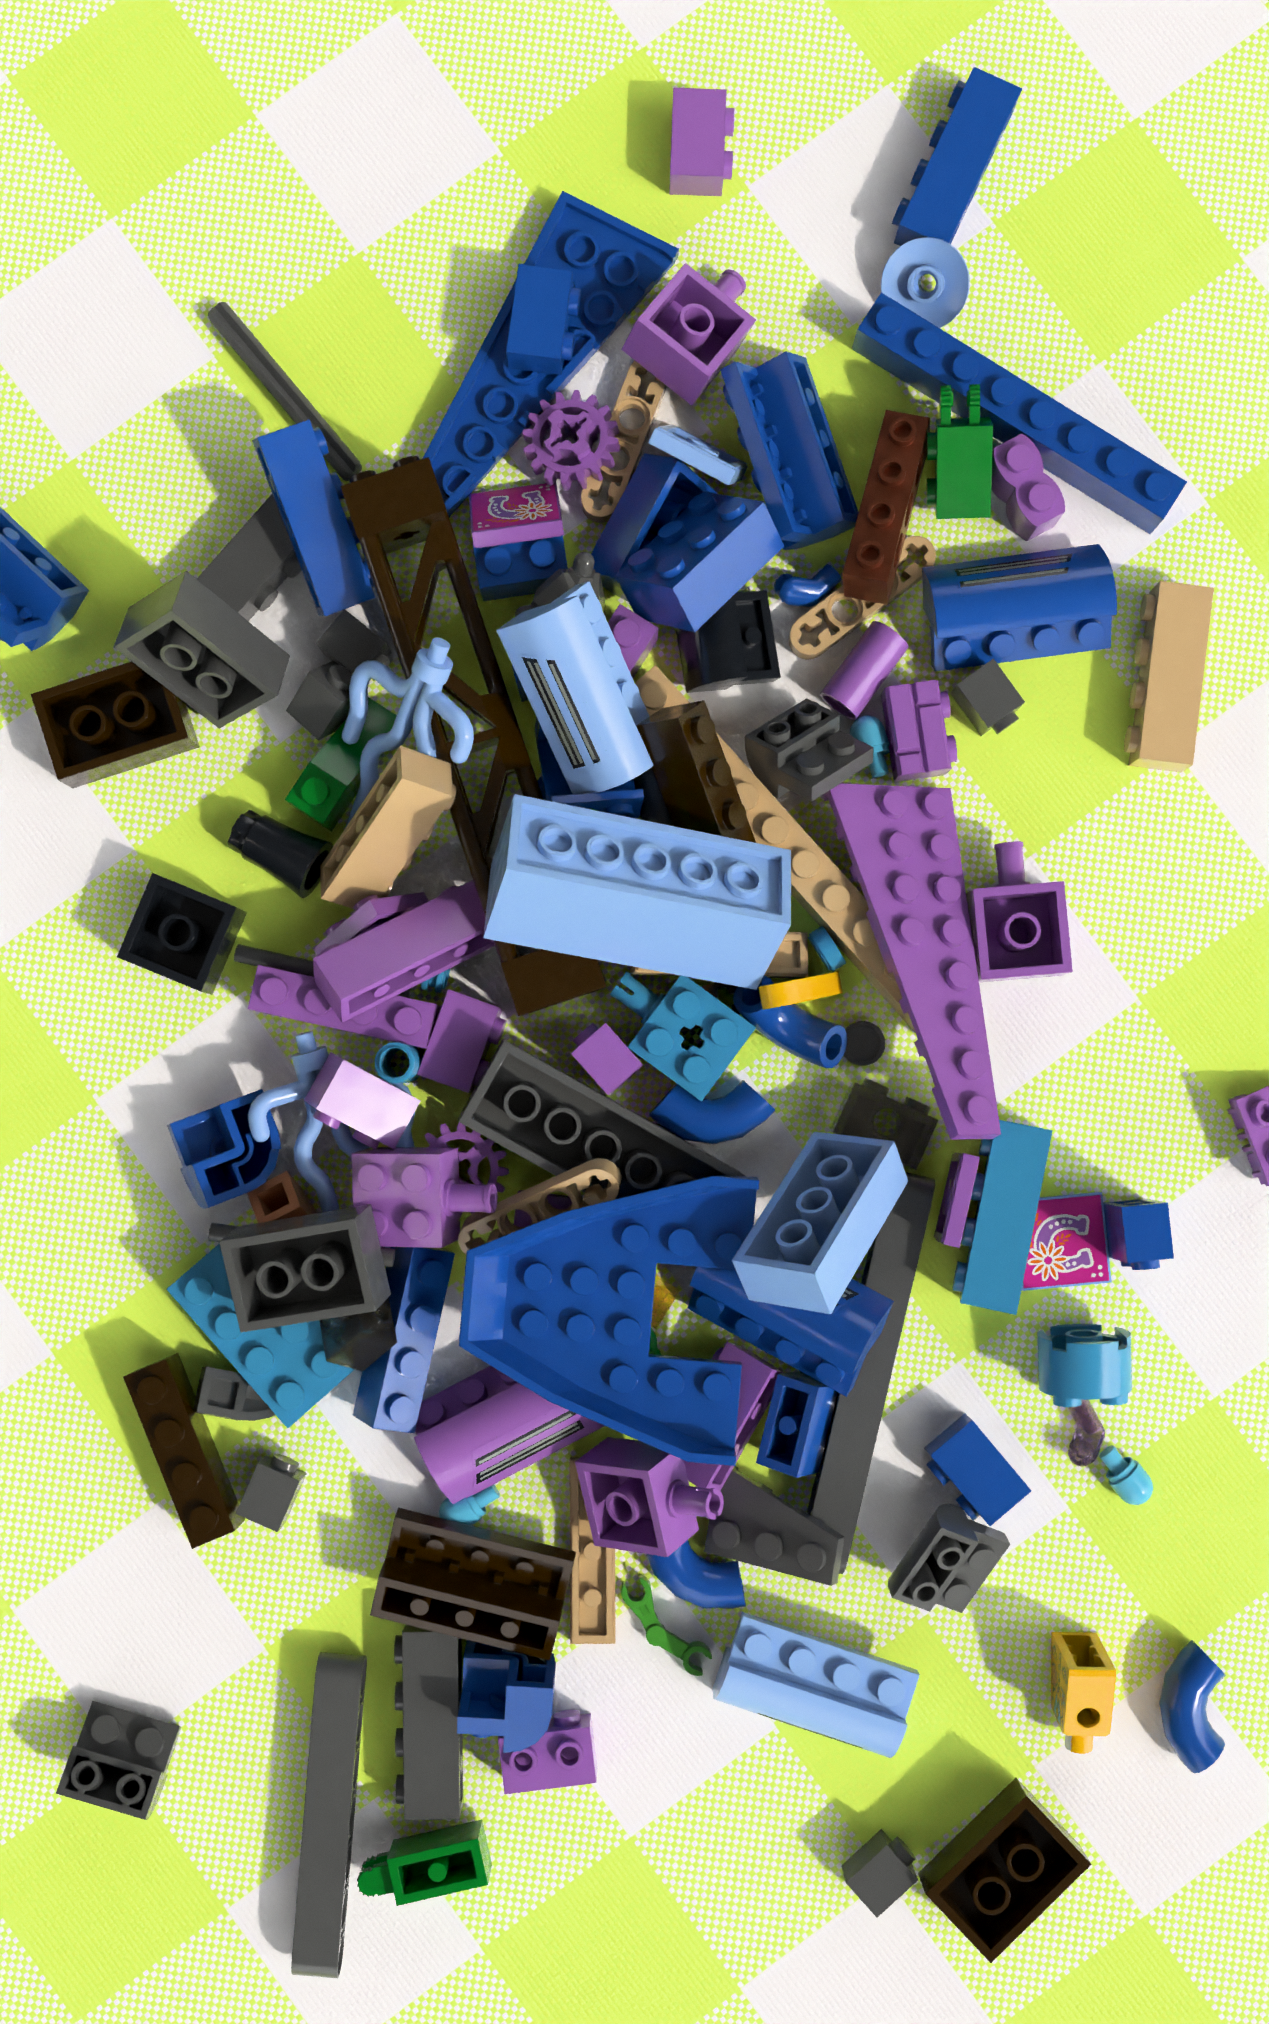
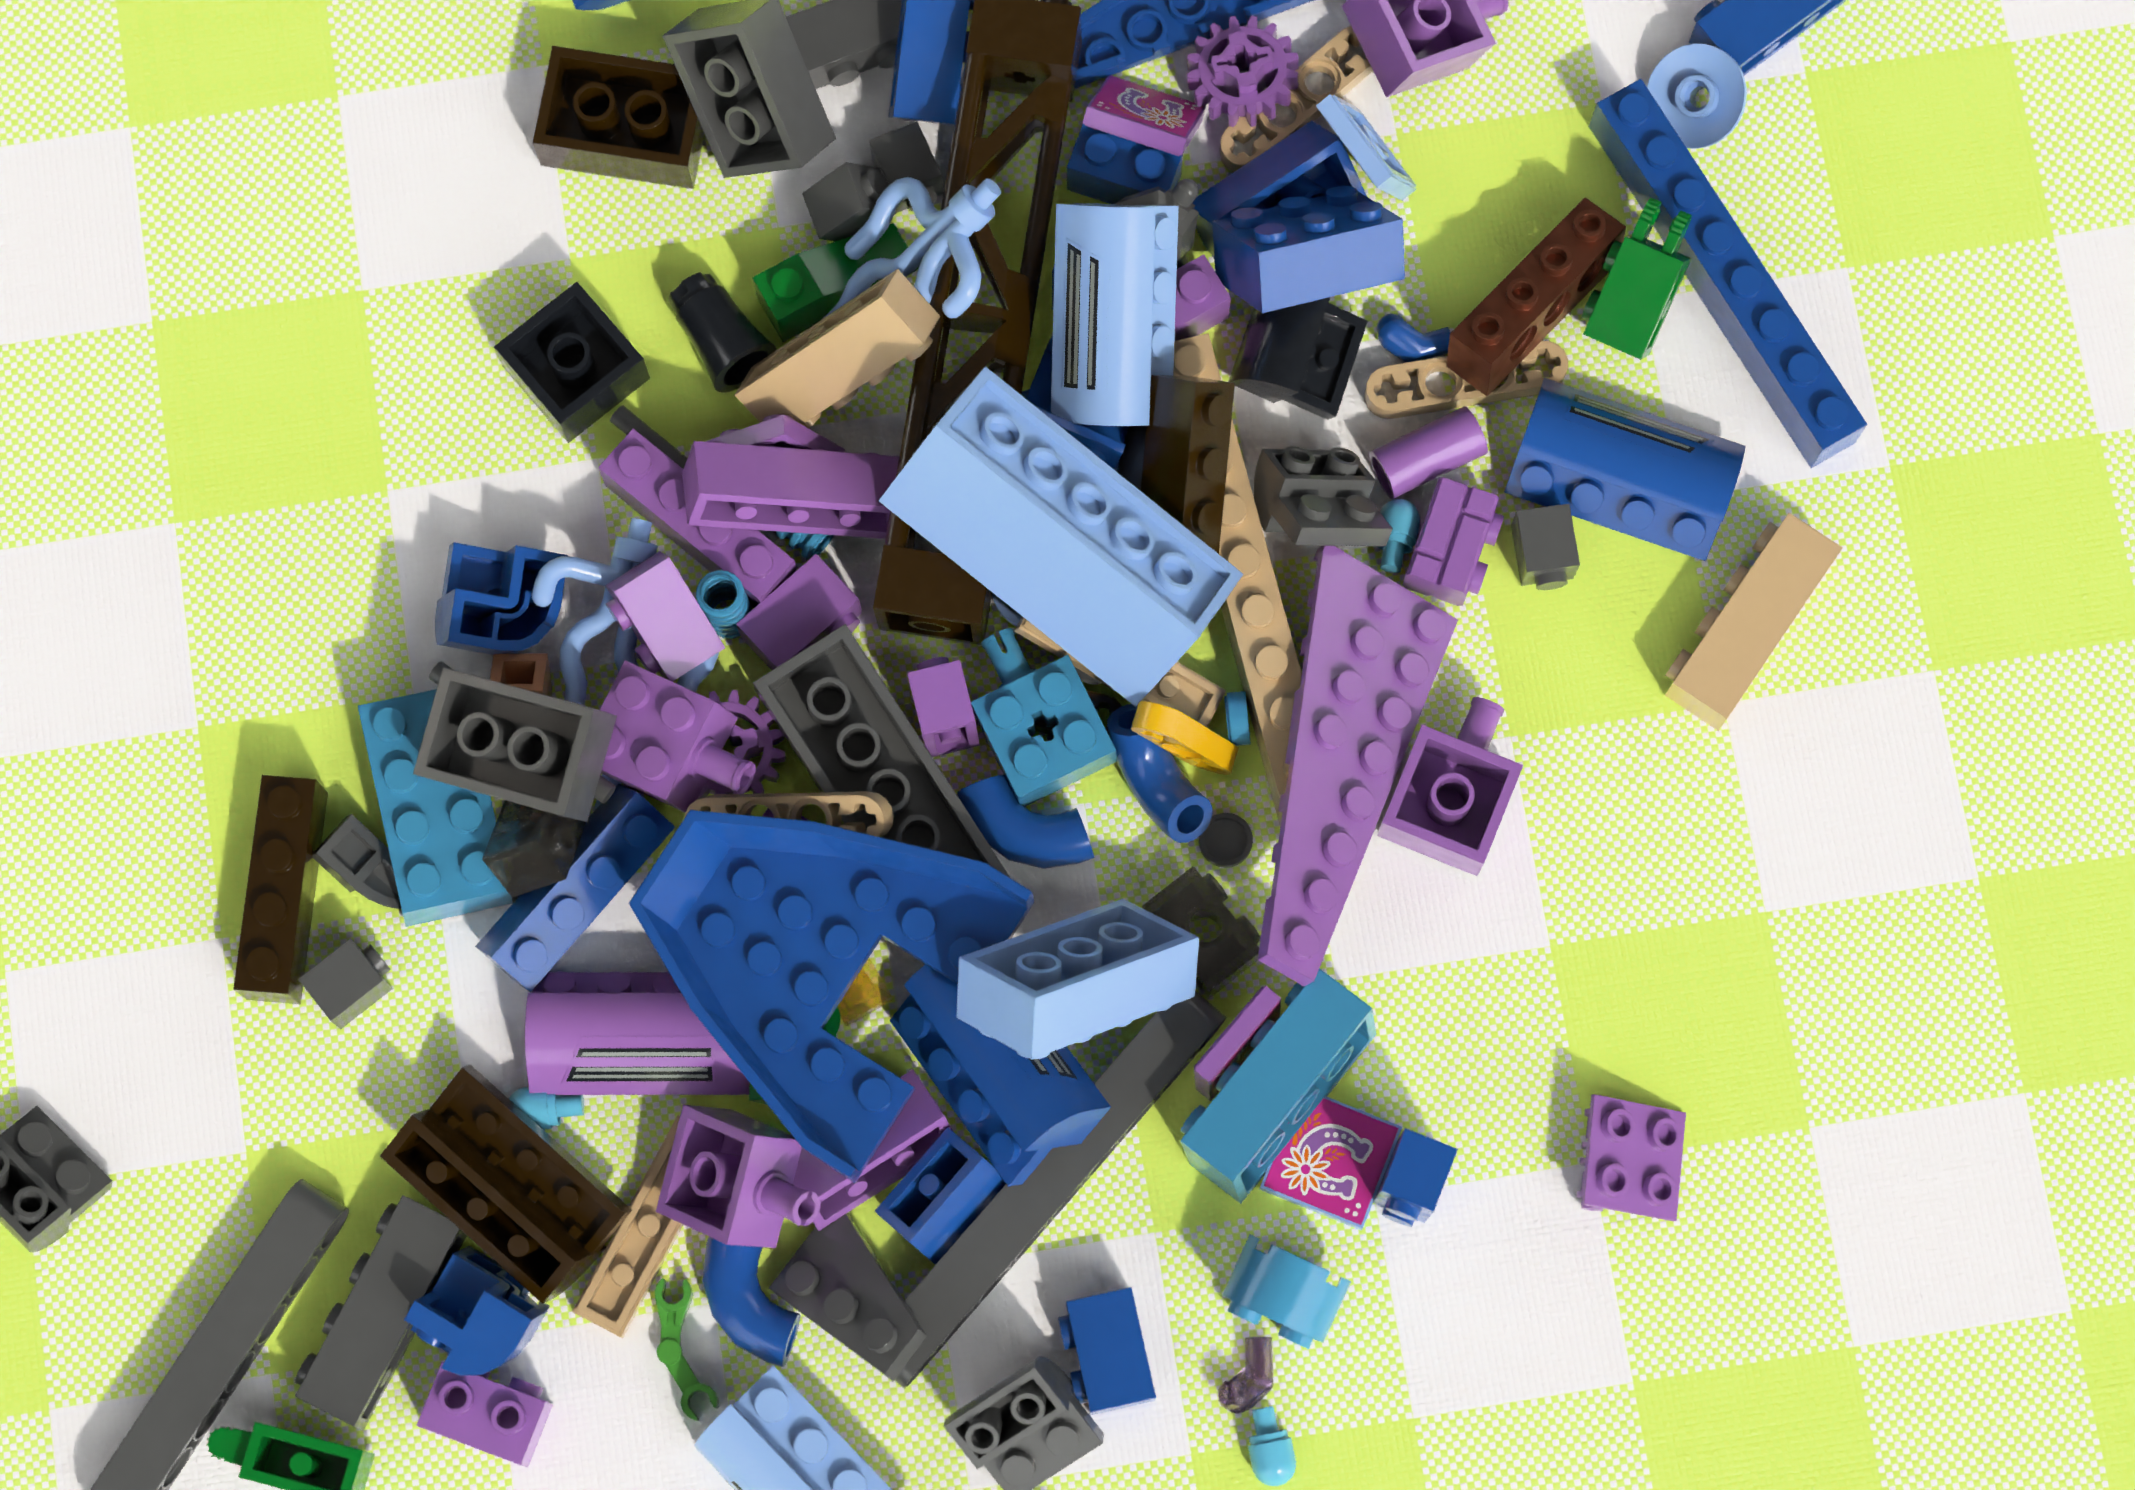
camera: 25 degrees right, 10 degrees down
(790, 449) = (1465, 190): blue brick -> none
(1030, 495) = (1693, 345): medium lavender brick -> none

